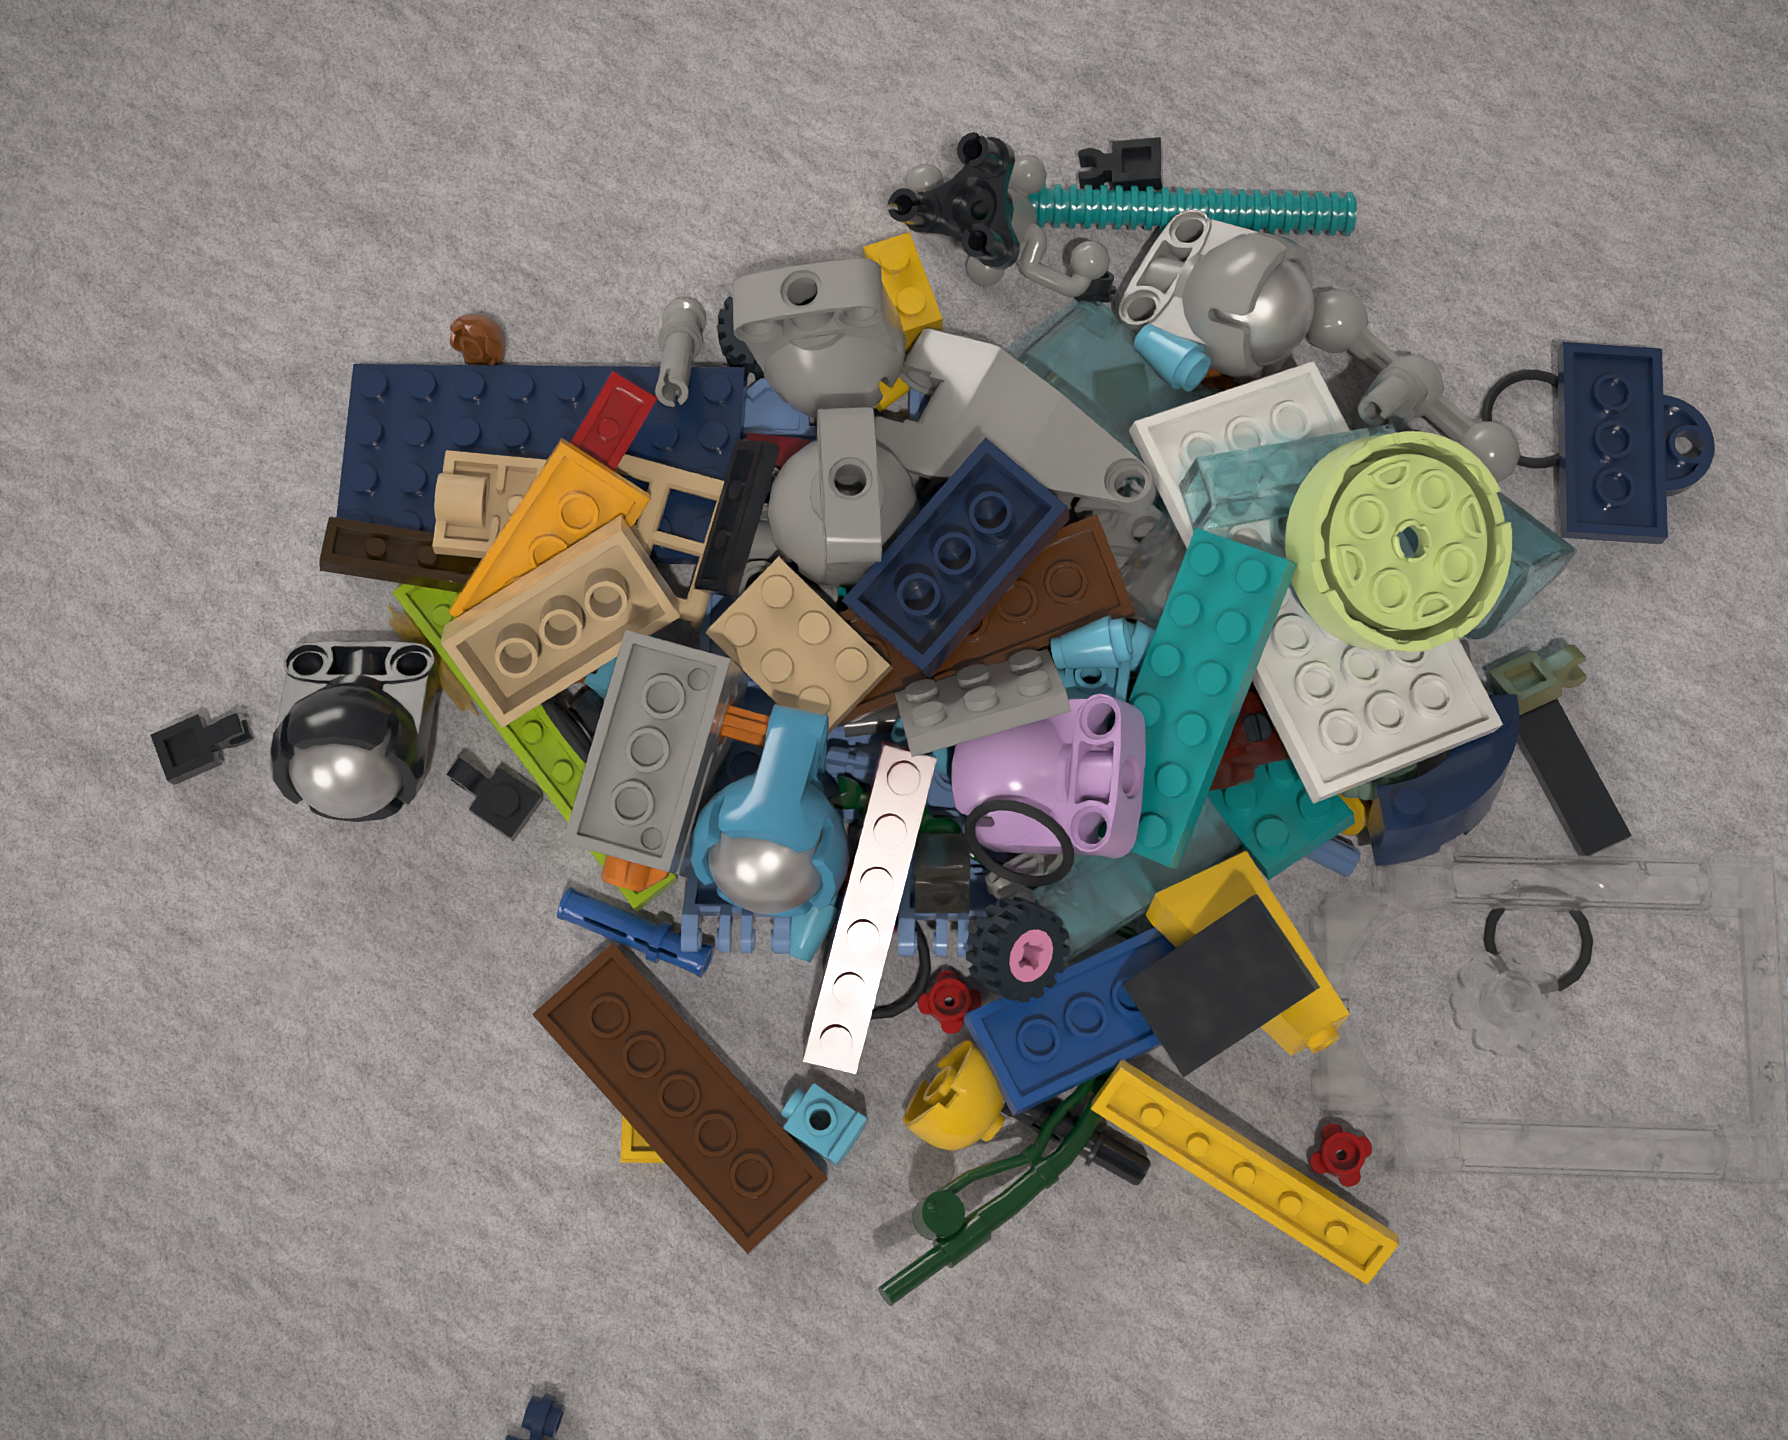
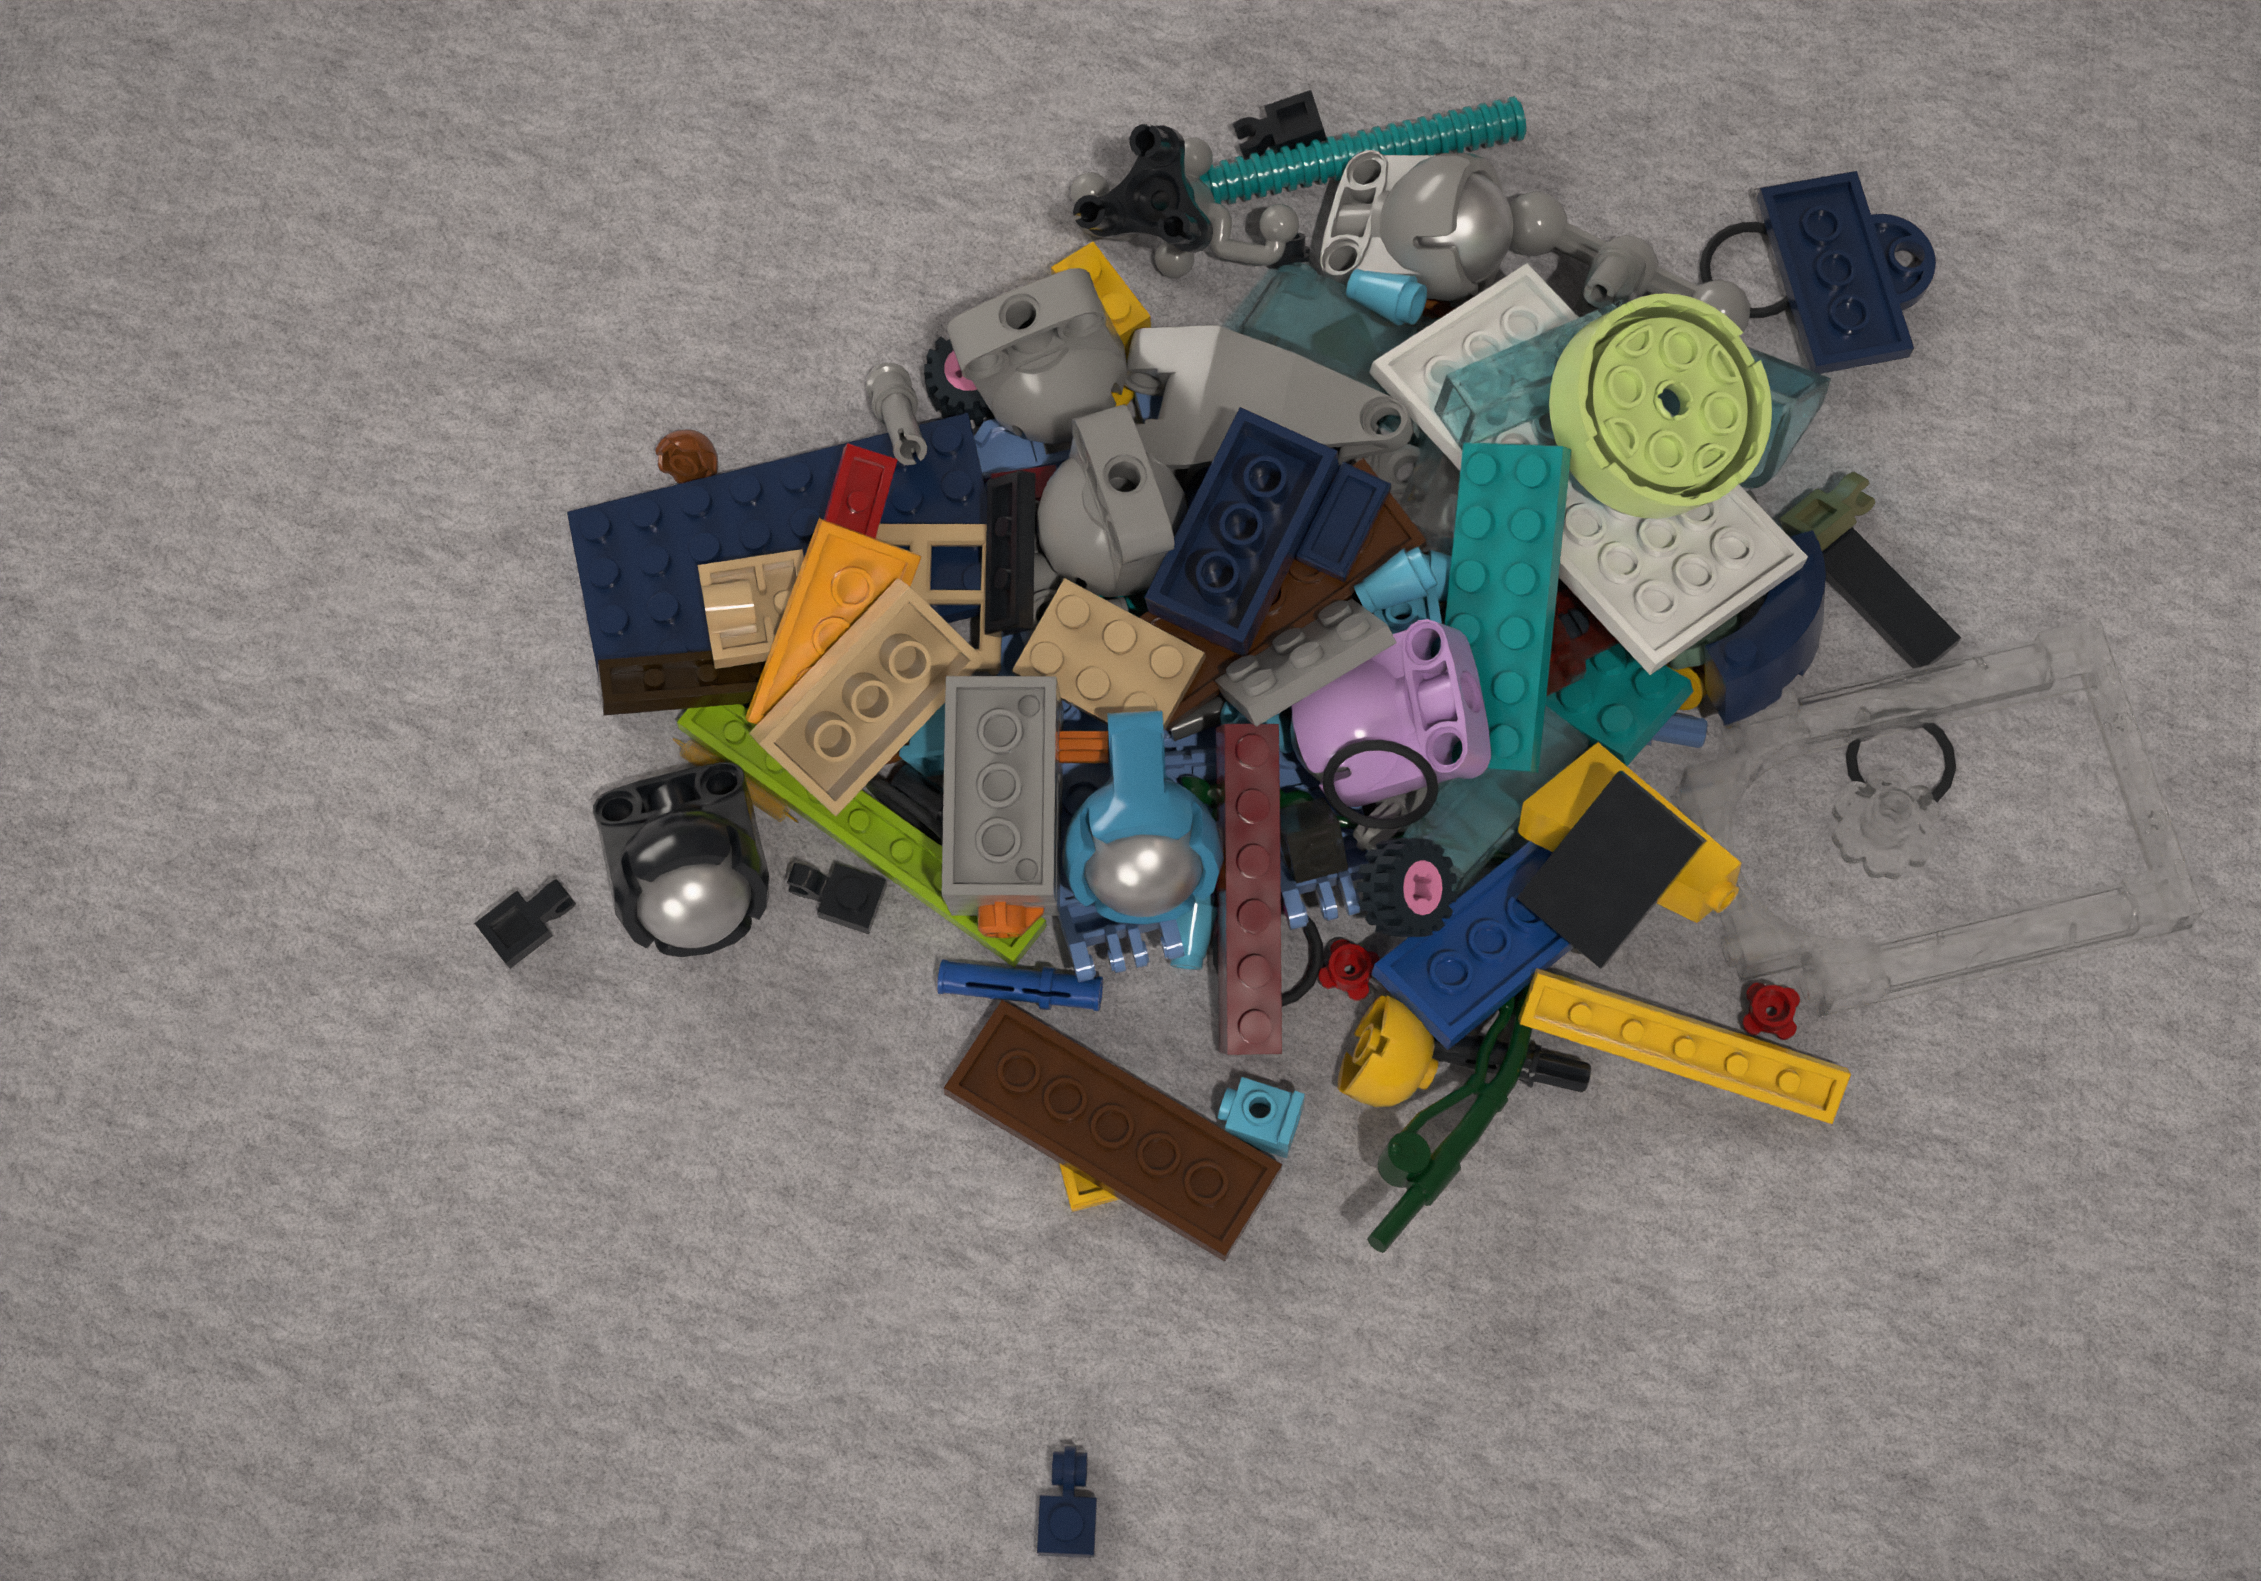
camera: 15 degrees left, 5 degrees down
(1060, 572) = (1343, 521): none -> dark blue tile

